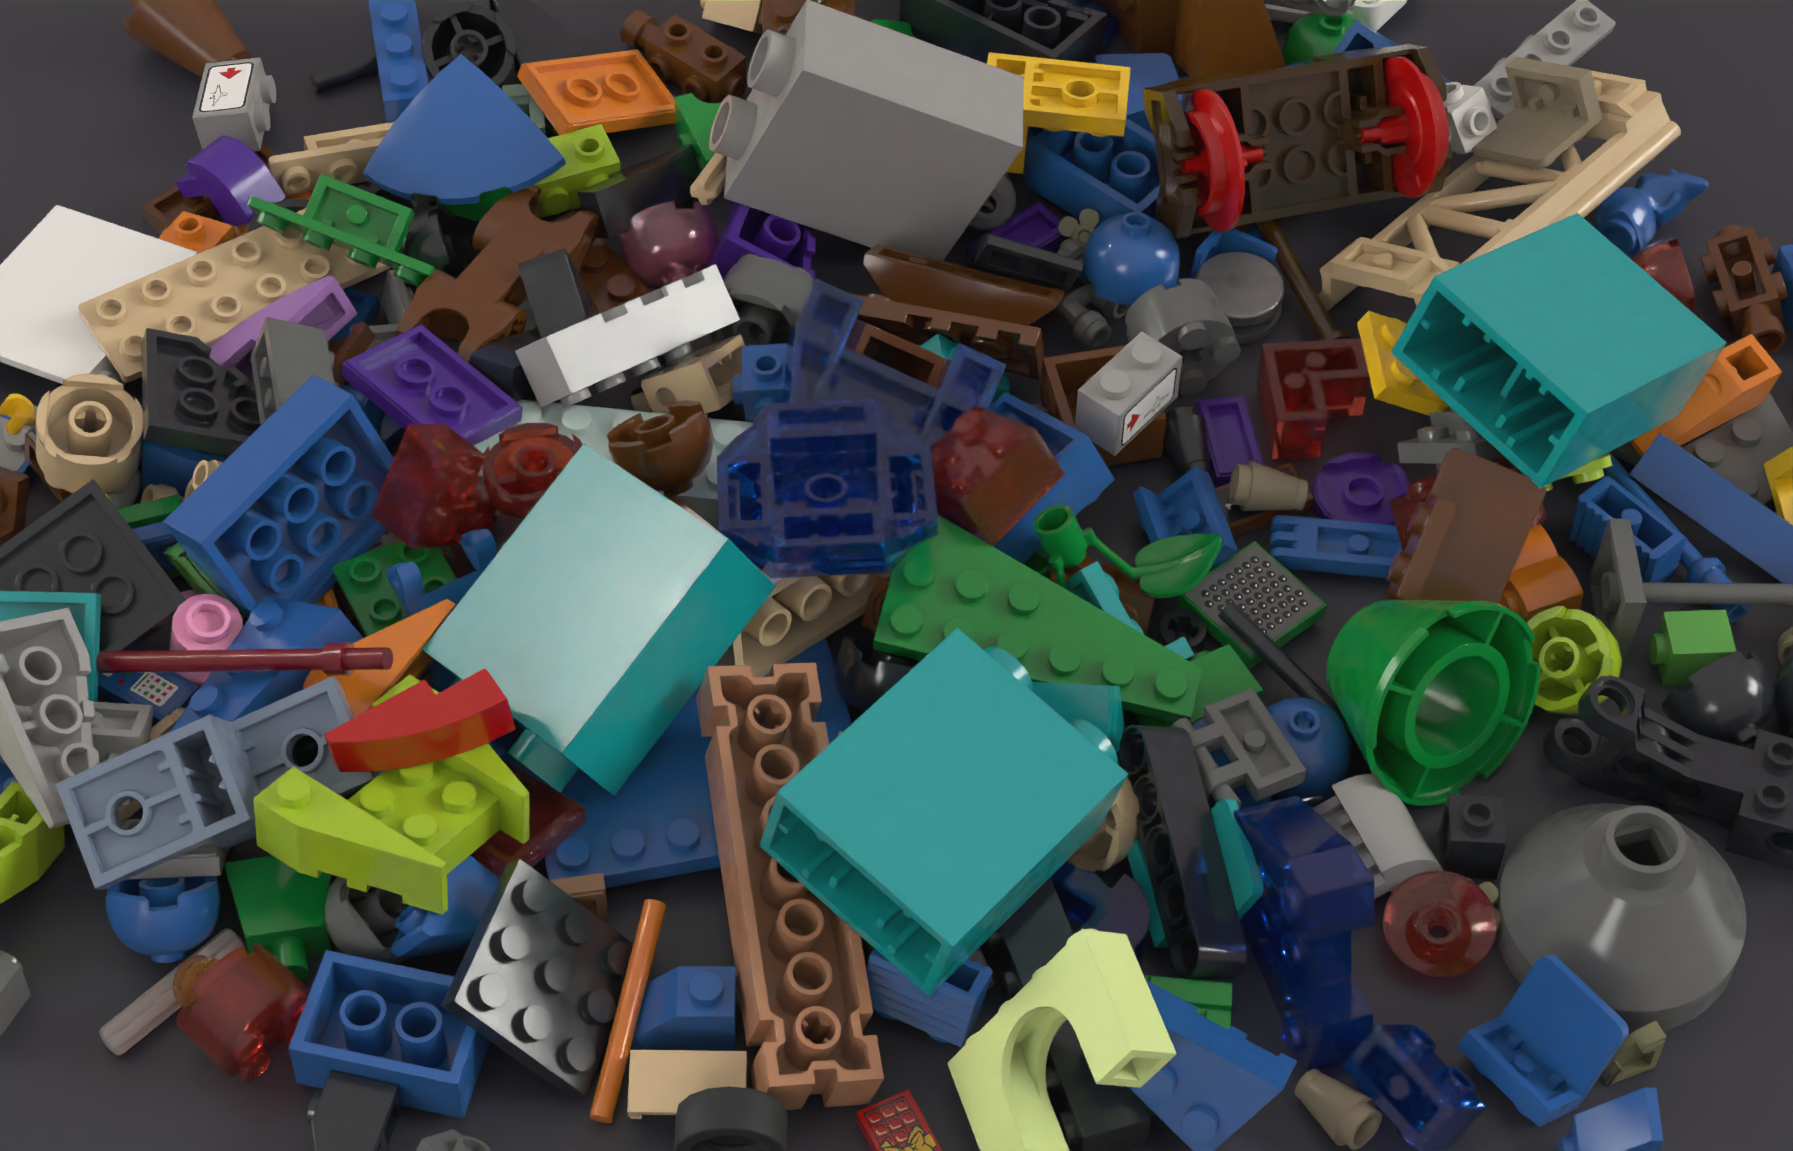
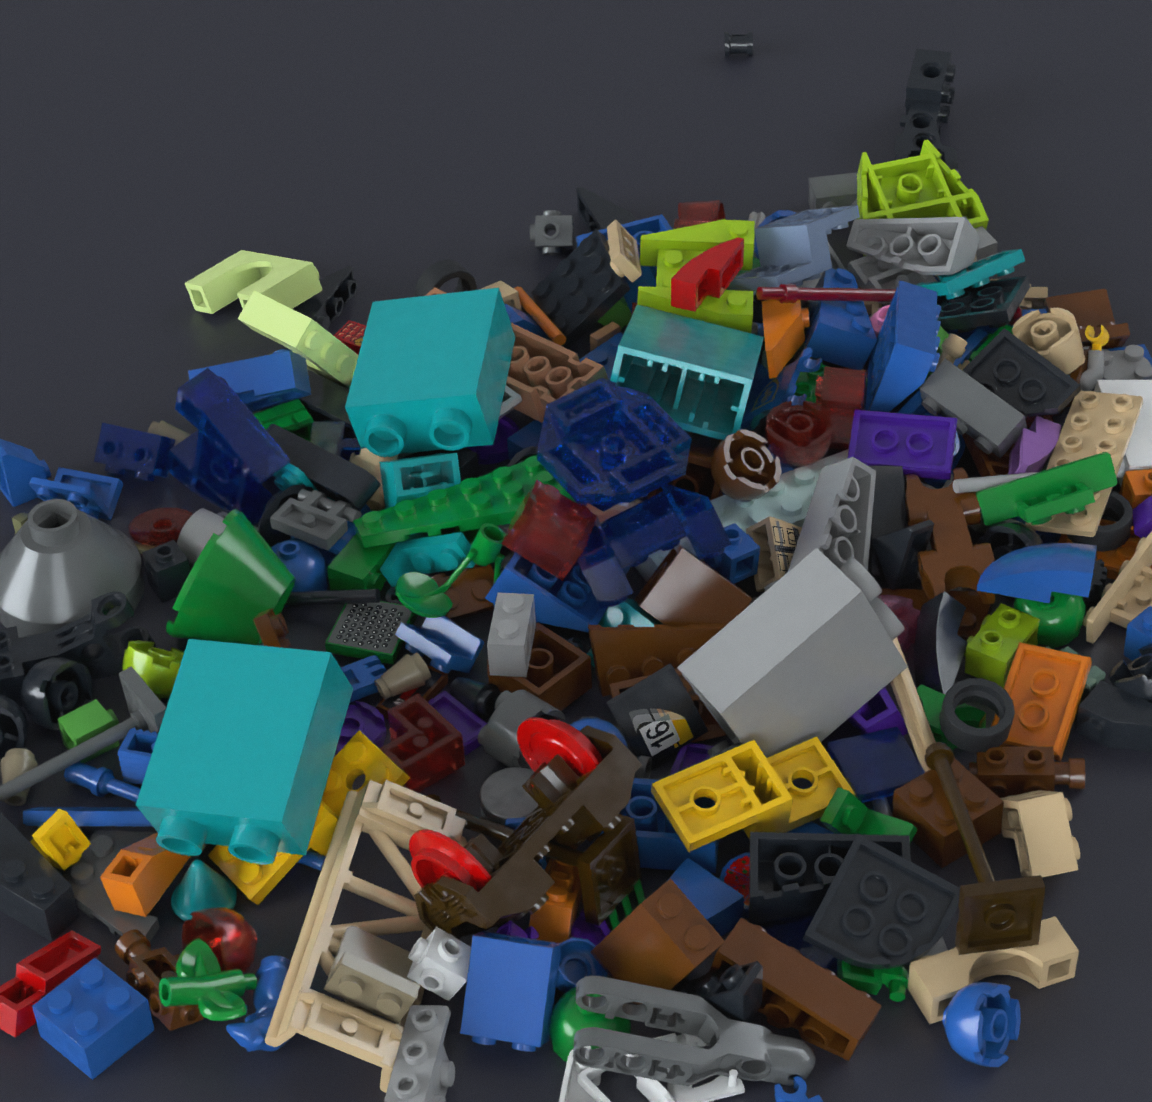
camera: 150 degrees right, 10 degrees down
(382, 274) = (981, 483): none -> light grey bar
(458, 925) = (623, 252): none -> tan plate
(692, 56) = (985, 693): none -> black tyre
(1709, 218) = (203, 984): none -> green plant

